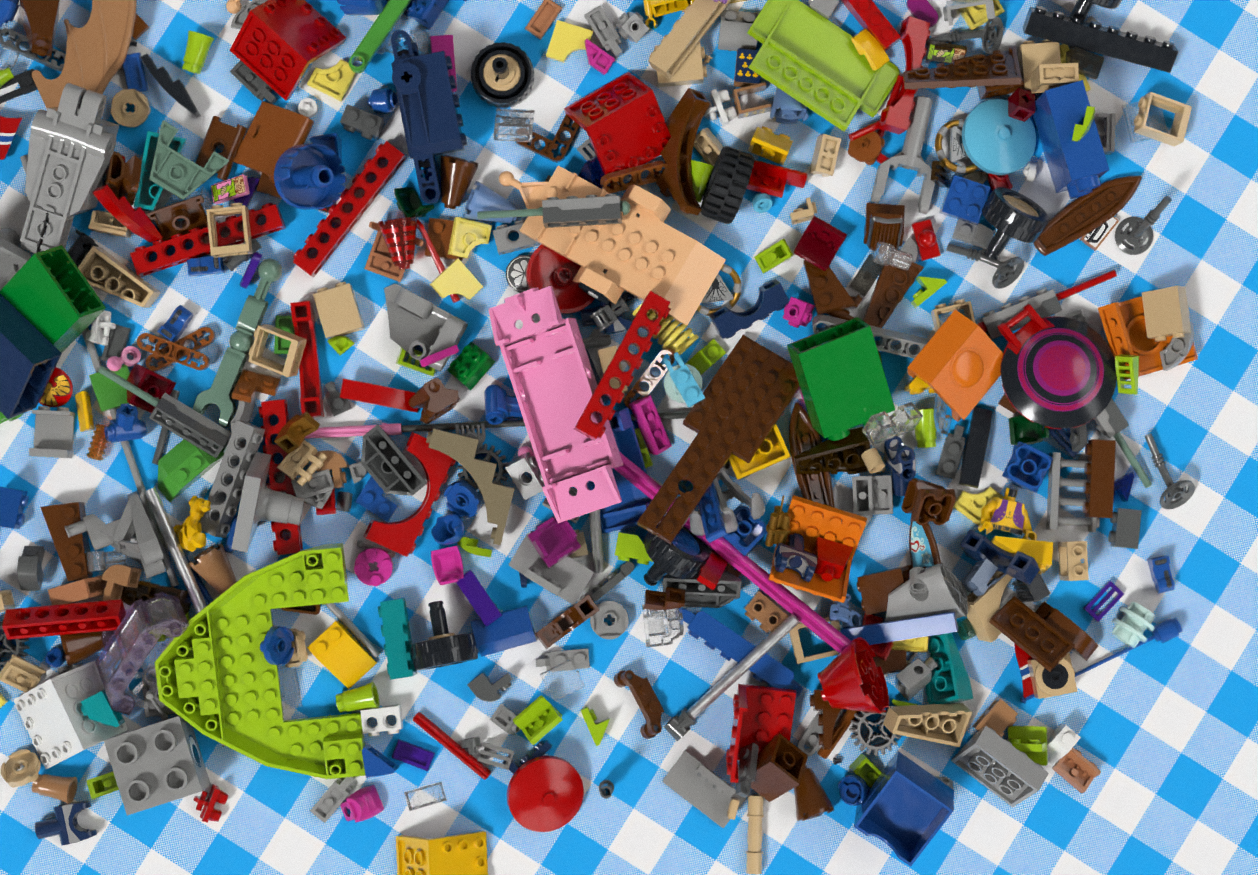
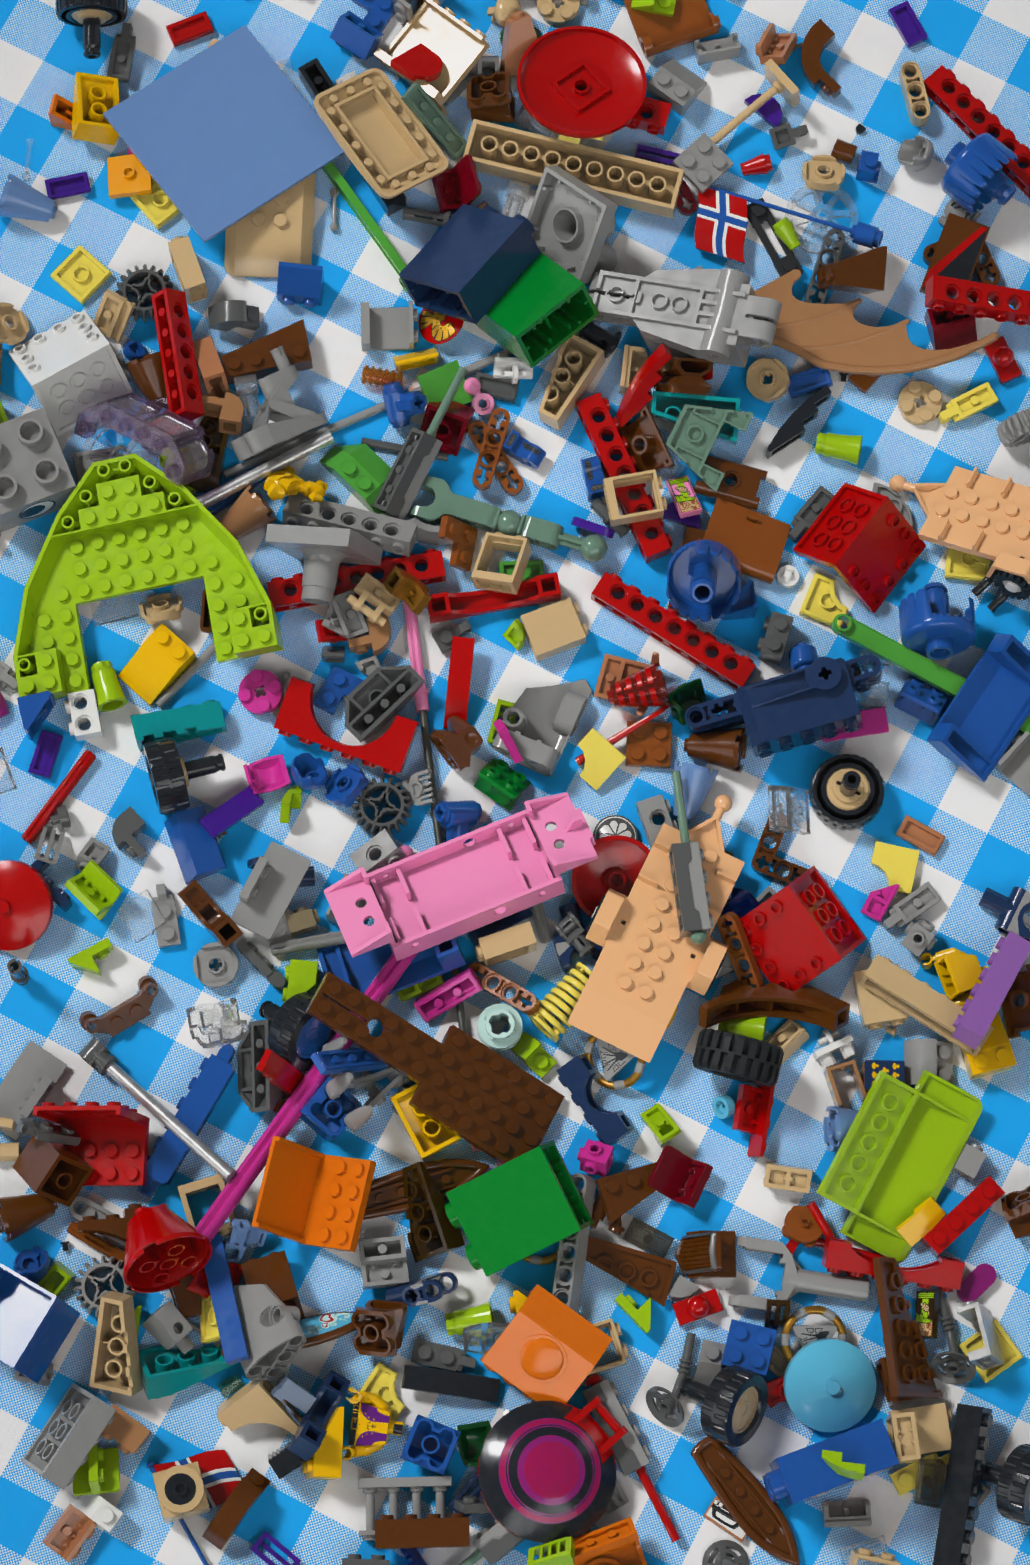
camera: 85 degrees right, 10 degrees down
(99, 709) = (77, 399): teal slope -> none
(150, 695) = (97, 453): light grey hinge -> none
(278, 637) = (162, 578): blue plate -> none
(467, 235) = (654, 766): light yellow tile -> none
(496, 496) = (350, 820): dark tan arch -> none
(554, 541) = (302, 890): magenta panel -> none
(651, 303) = (587, 974): red brick -> none
(670, 599) = (241, 1022): reddish brown slope -> none
(684, 382) = (499, 1023): medium azure hinge -> none
(765, 612) = (236, 1144): medium nougat brick -> none
(770, 145) = (793, 1109): yellow slope -> none
(778, 526) = (336, 1148): pearl gold piece -> none
(795, 557) = (302, 1169): dark blue connector -> none
(800, 215) = (713, 1154): tan bracket -> none
(831, 558) = (303, 1214): red torso -> none
(873, 461) = (422, 1259): tan pin -> none
(885, 427) = (474, 1289): clear arch -> none
(887, 255) = (672, 1258): clear piece -> none
(1021, 105) = (870, 1407): dark red brick -> none
(1030, 171) = (791, 1426): white tile -> none
(1032, 633) = (229, 1460): reddish brown tile -> none
(1069, 560) = (311, 1506): tan window -> none

